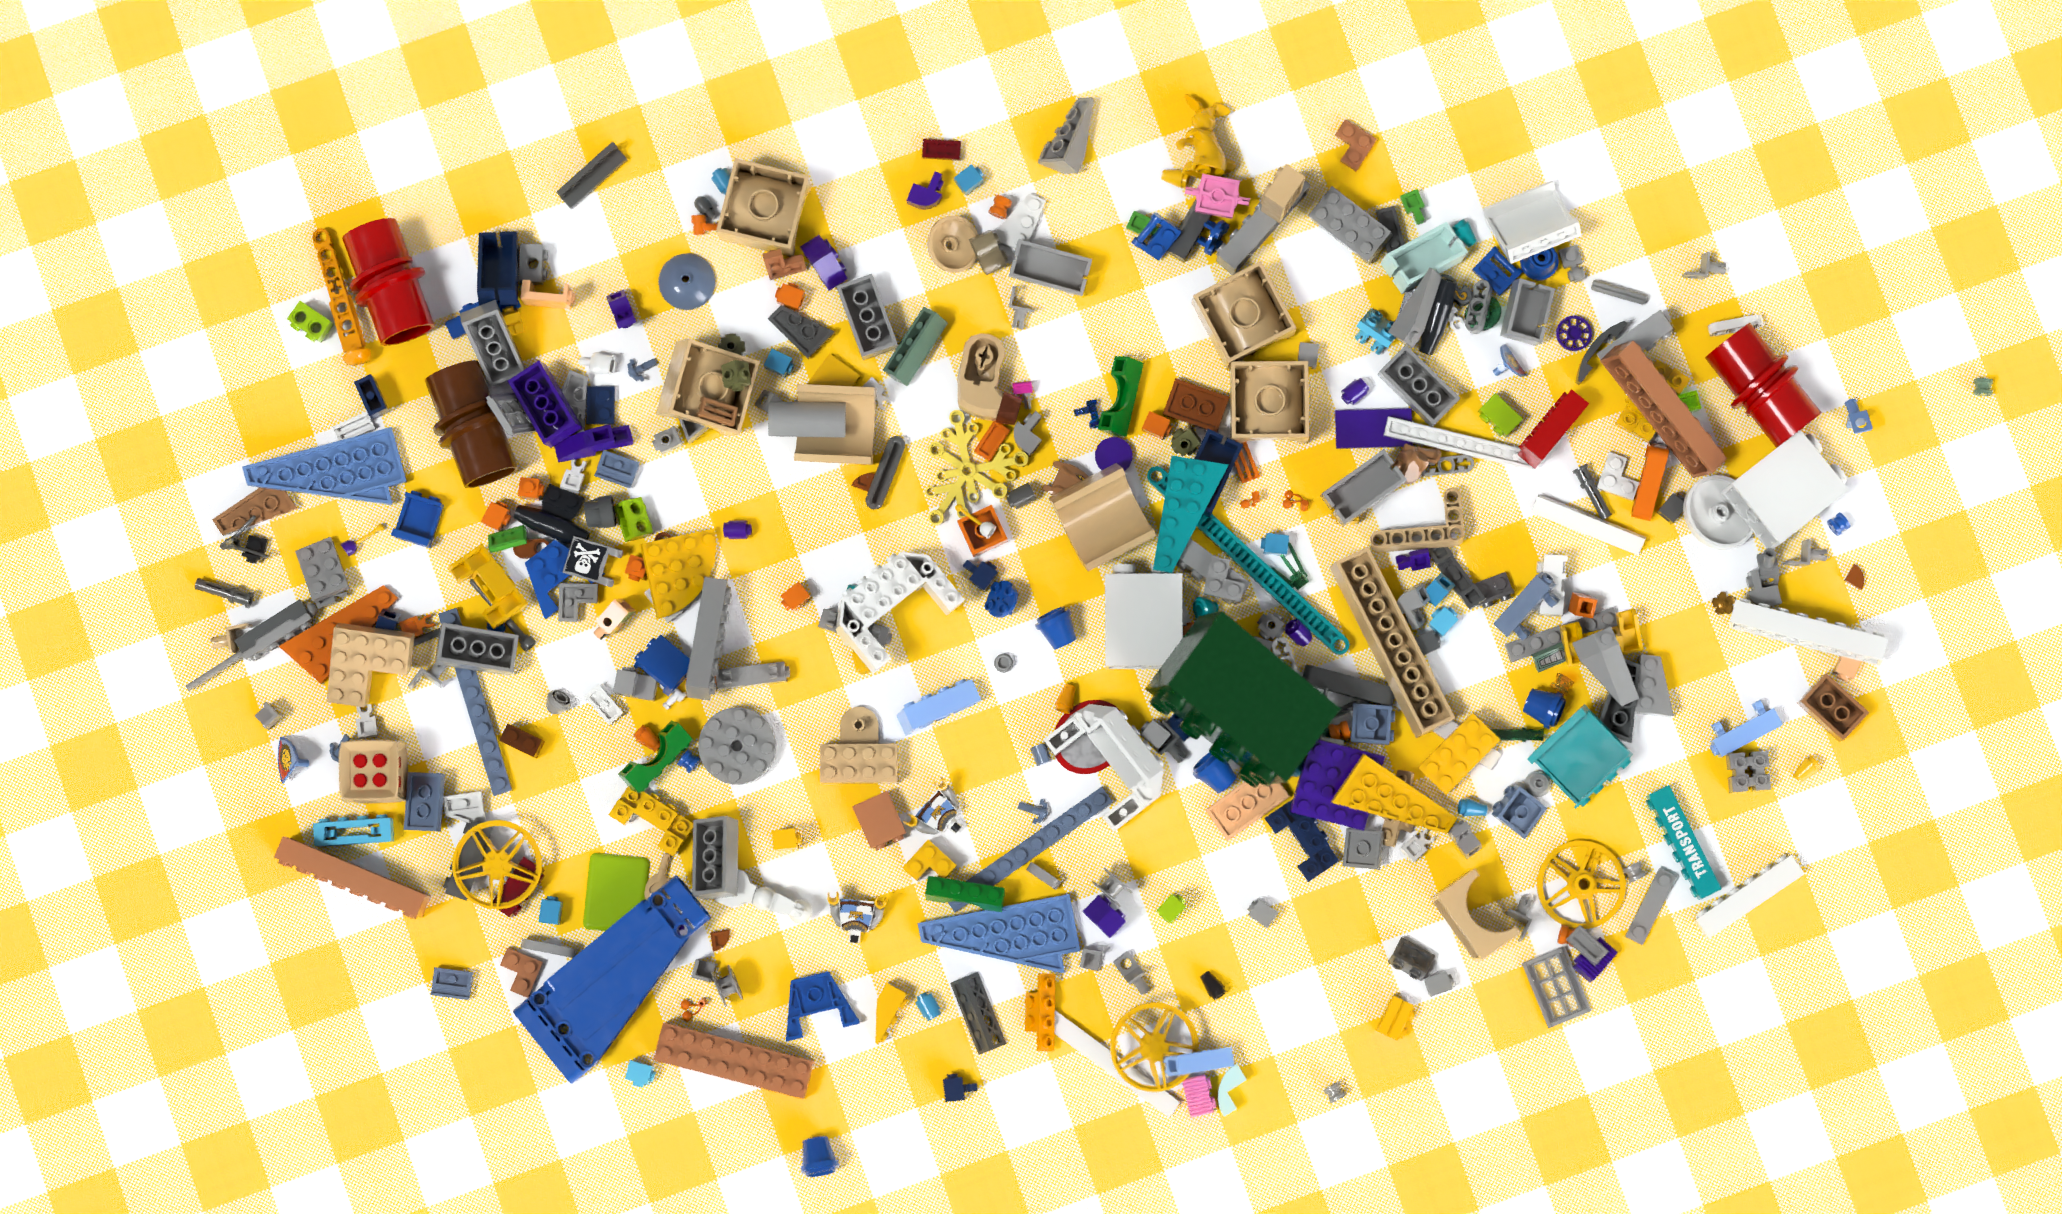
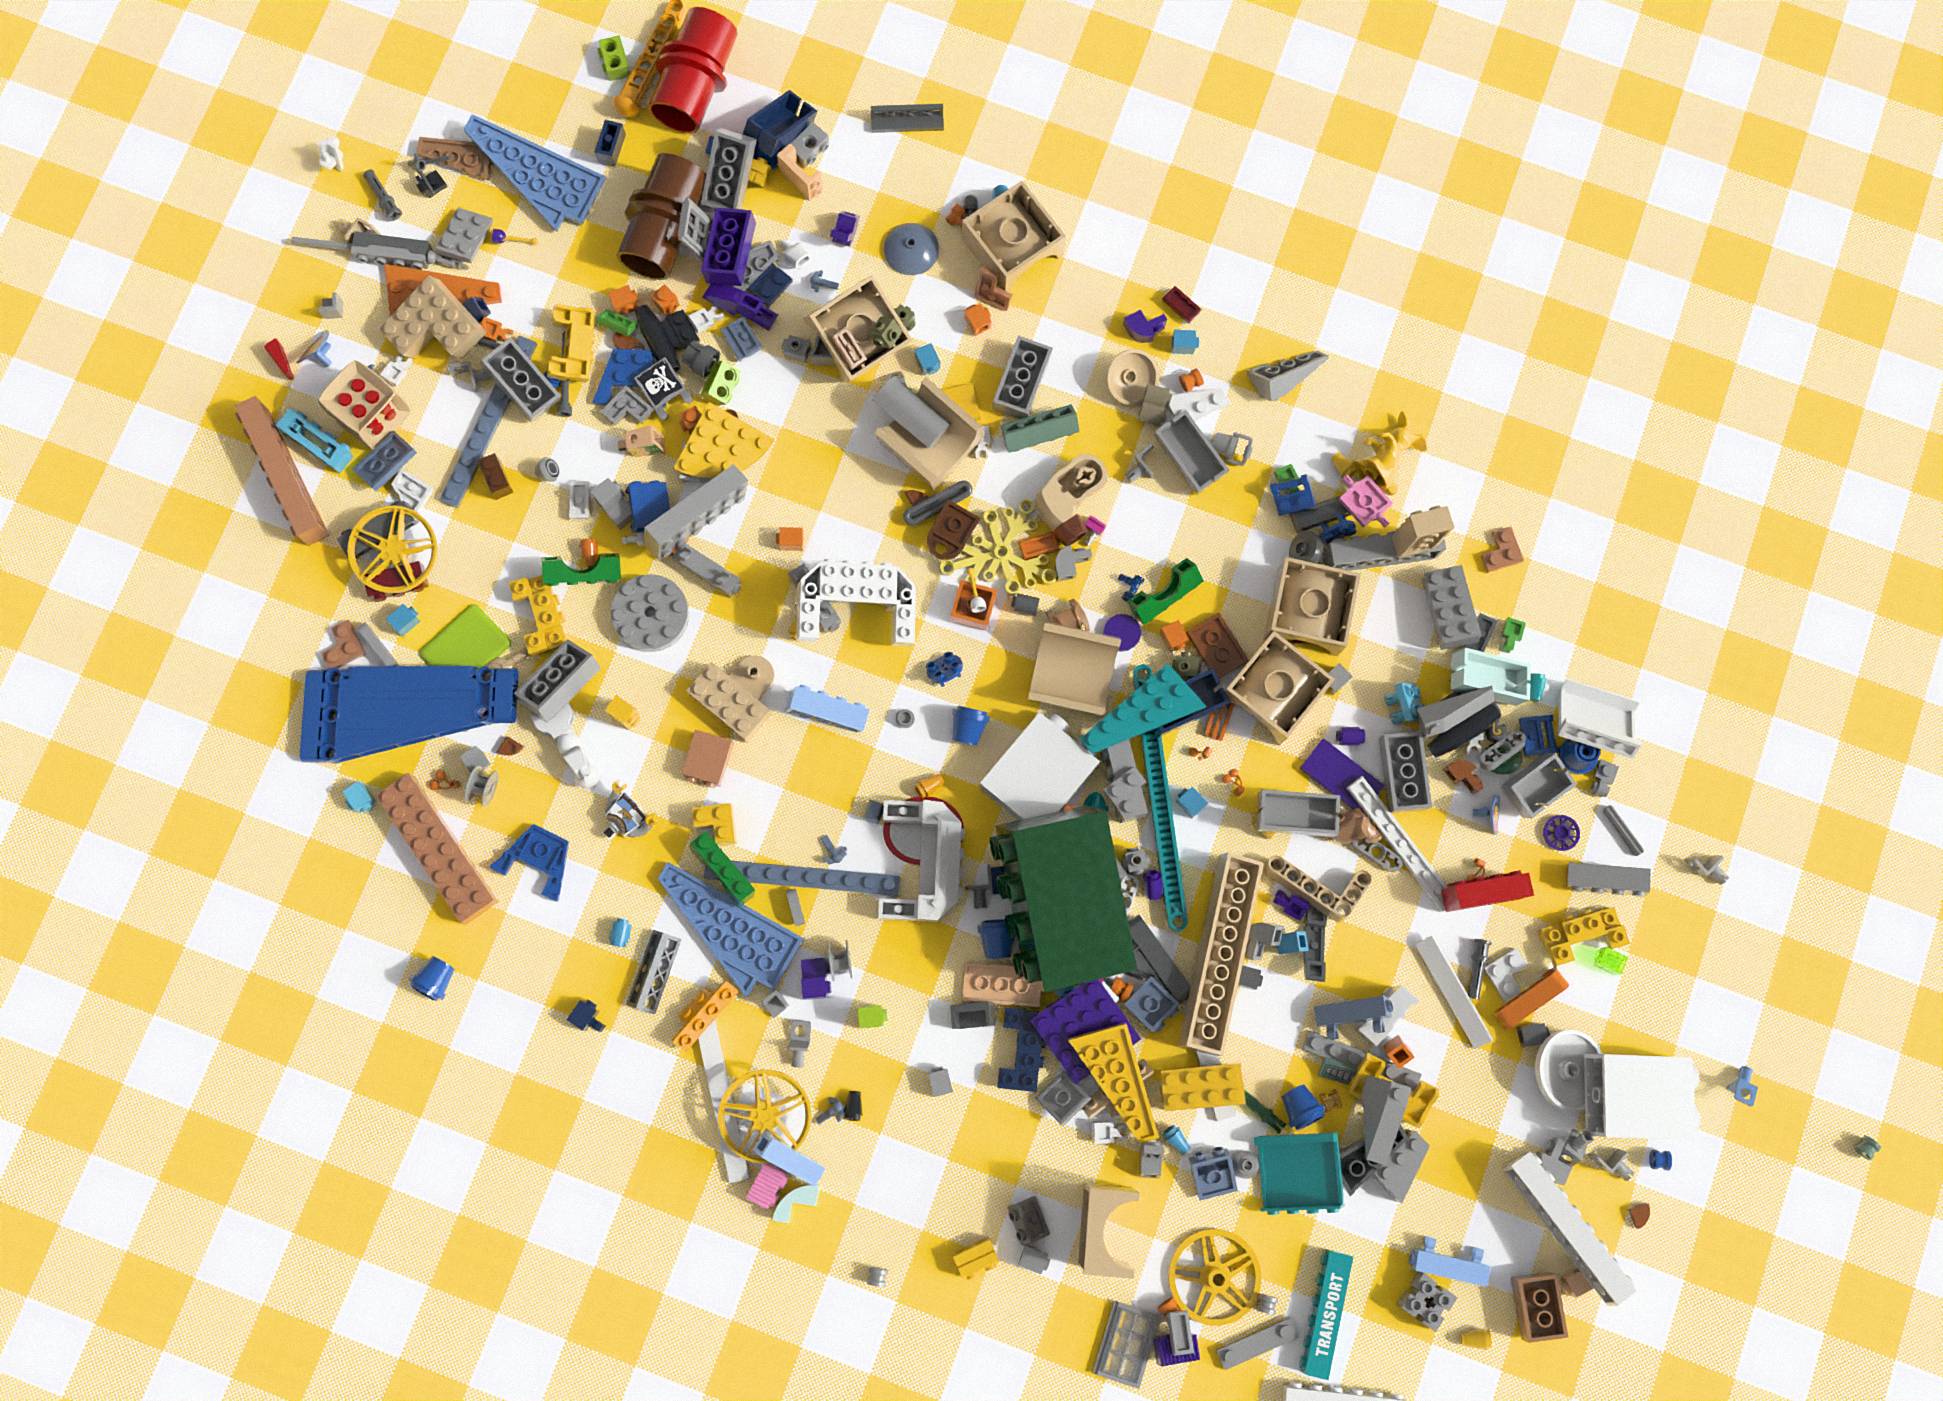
camera: 30 degrees right, 5 degrees down
(156, 593) = (330, 153): none -> white hips
(258, 788) = (278, 354): none -> red slope
(352, 420) = (566, 152): white tile -> none
(418, 519) = (566, 257): blue panel -> none
(452, 983) = (284, 612): sand blue plate -> none
(688, 761) = (604, 594): blue wheel -> none
(737, 529) = (791, 454): dark purple brick -> none
(800, 331) = (964, 352): dark grey wing -> none
(823, 260) = (1024, 312): dark purple brick -> none
(887, 1006) = (590, 905): yellow slope -> none
(915, 485) = (952, 530): none -> reddish brown plate
(937, 812) = (756, 789): torso -> none
(982, 575) = (945, 639): dark blue brick -> none
(1071, 236) = (1226, 445): none -> light grey piece
(1154, 734) = (975, 869): light grey brick -> none
(1202, 996) = (837, 1108): none -> sand blue piece
(1203, 271) = (1308, 547): none -> dark grey piece
(1245, 844) = (972, 1015): none -> dark grey panel
(1297, 579) = (1187, 843): clear green plant -> none
(1443, 620) = (1275, 970): medium azure brick -> none
(1460, 349) = (1462, 771): none -> dark orange brick
(1495, 588) = (1337, 980): flat silver bracket -> none
(1499, 415) = (1451, 848): lime brick -> none
(1520, 915) = (1146, 1259): light grey bracket -> none
(1530, 409) = (1480, 863): none -> orange piece
(1612, 333) = (1591, 855): dark grey slope -> none
(1663, 409) = (1591, 949): nougat brick -> none
(1723, 603) = (1513, 1146): pearl gold plant -> none
(1733, 325) = (1699, 932): white beam -> none
(1763, 384) = (1688, 996): red piece -> none

